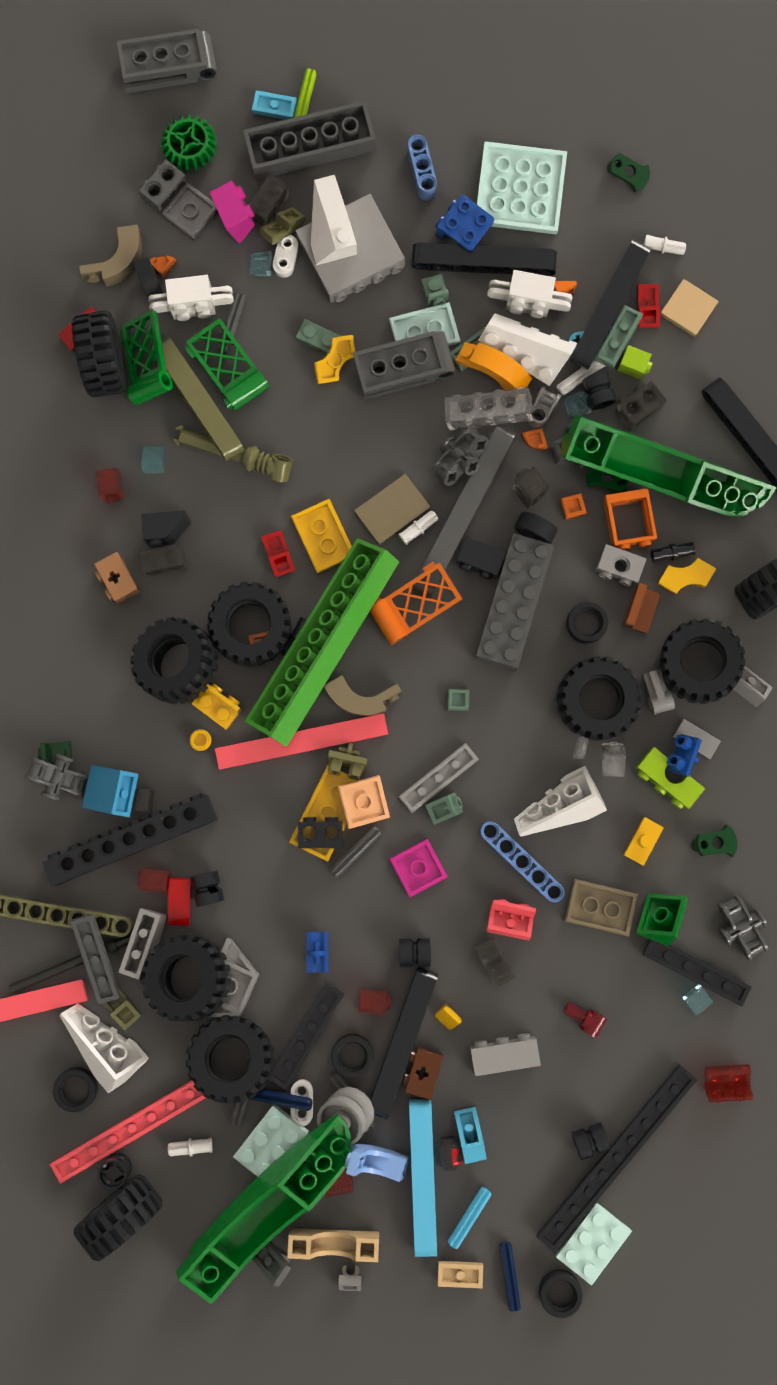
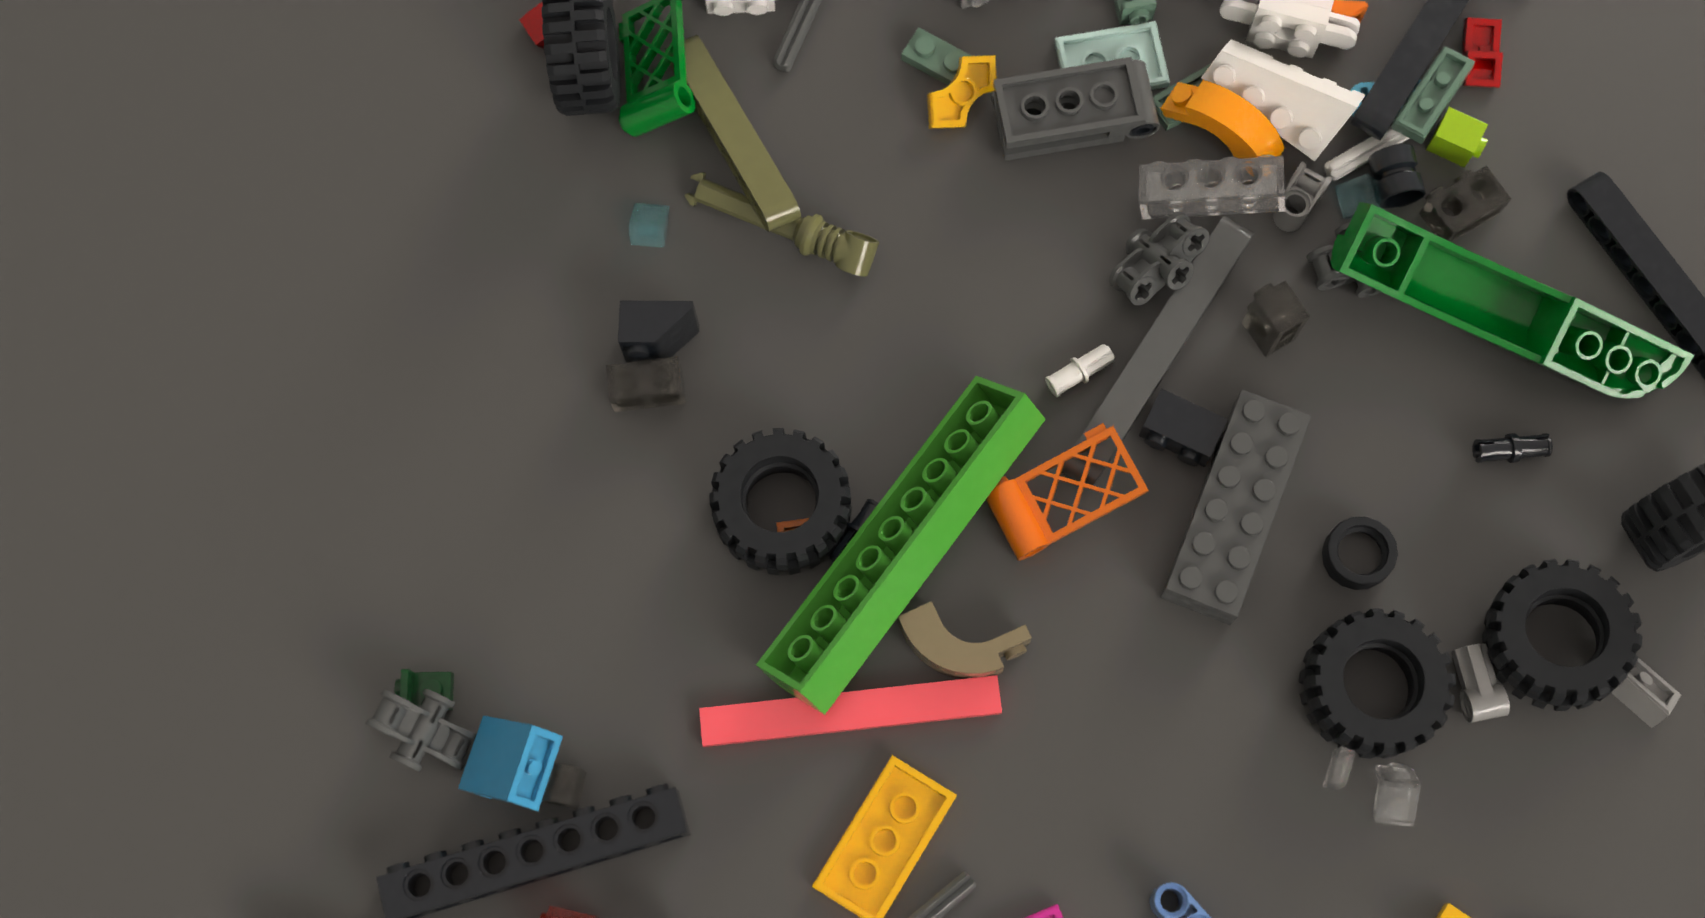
camera: 10 degrees right, 10 degrees down
(109, 484) = (573, 256): clear red brick -> none
(113, 566) = (562, 387): medium nougat brick -> none
(153, 647) = (618, 520): black tyre -> none
(200, 740) = (676, 692): yellow plate -> none
(217, 706) = (711, 635): yellow bracket -> none
(241, 389) = (802, 127): green piece -> none
(278, 553) = (840, 391): red slope -> none
(320, 839) = (868, 886): black brick -> none
(322, 535) = (916, 369): yellow tile -> none
(346, 758) = (928, 749): olive hips -> none
(363, 802) = (949, 827): light nougat tile -> none
(392, 509) = (1037, 337): dark tan tile -> none
(438, 778) = (1084, 798): light grey tile -> none
(444, 808) = (1091, 852): sand green bracket -> none
(458, 700) = (1127, 665): sand green tile -> none
(535, 439) = (1284, 245): orange tile -> none
(535, 527) = (1280, 382): black tyre -> none
(567, 804) = (1311, 865): white wedge -> none
(573, 506) = (1343, 359): orange tile -> none
(593, 478) = (1382, 312): dark green piece -> none
(628, 498) = (1438, 352): orange window -> none
(633, 565) = (1441, 458): light grey brick -> none
(641, 609) = (1454, 538): dark orange panel -> none
(653, 768) = (1467, 817): lime arch -> none
(684, 755) = (1525, 797): blue hips -> none
(689, 308) = (1549, 62): tan tile -> none
(697, 574) = (1551, 489): yellow tile -> none
(709, 743) = (1544, 773): light grey tile -> none

